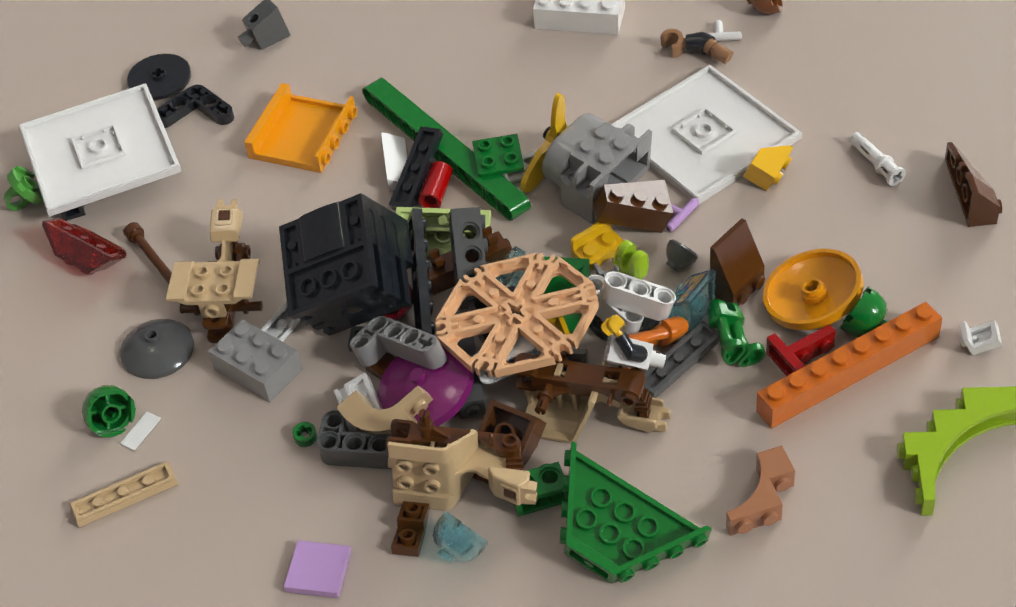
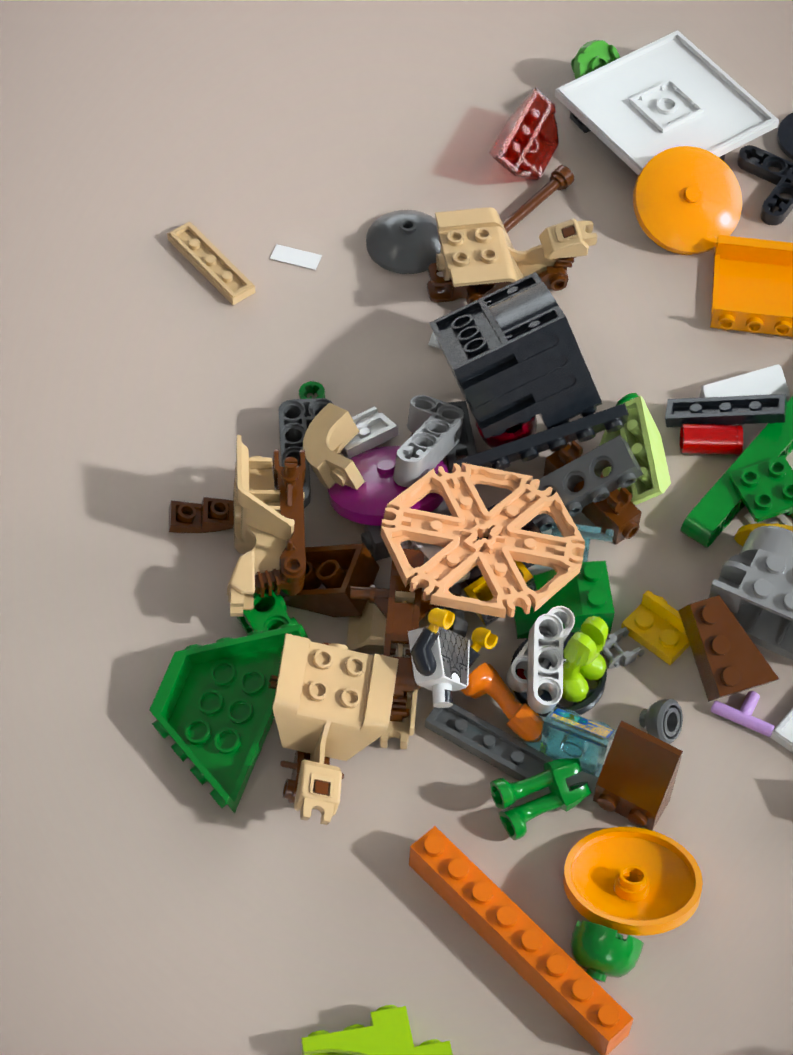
camera: 70 degrees right, 5 degrees up
(108, 410) = (303, 216): green cylinder -> none
(201, 153) = (687, 200): none -> light orange dish
(255, 360) = (397, 325): light grey brick -> none
(317, 569) = (139, 445): lavender tile -> none
(456, 539) = (185, 556): clear light blue cylinder -> none
(645, 436) = (327, 708): none -> tan piece
(764, 505) = (326, 866): nougat arch -> none
(794, 356) = (528, 881): red bracket -> none

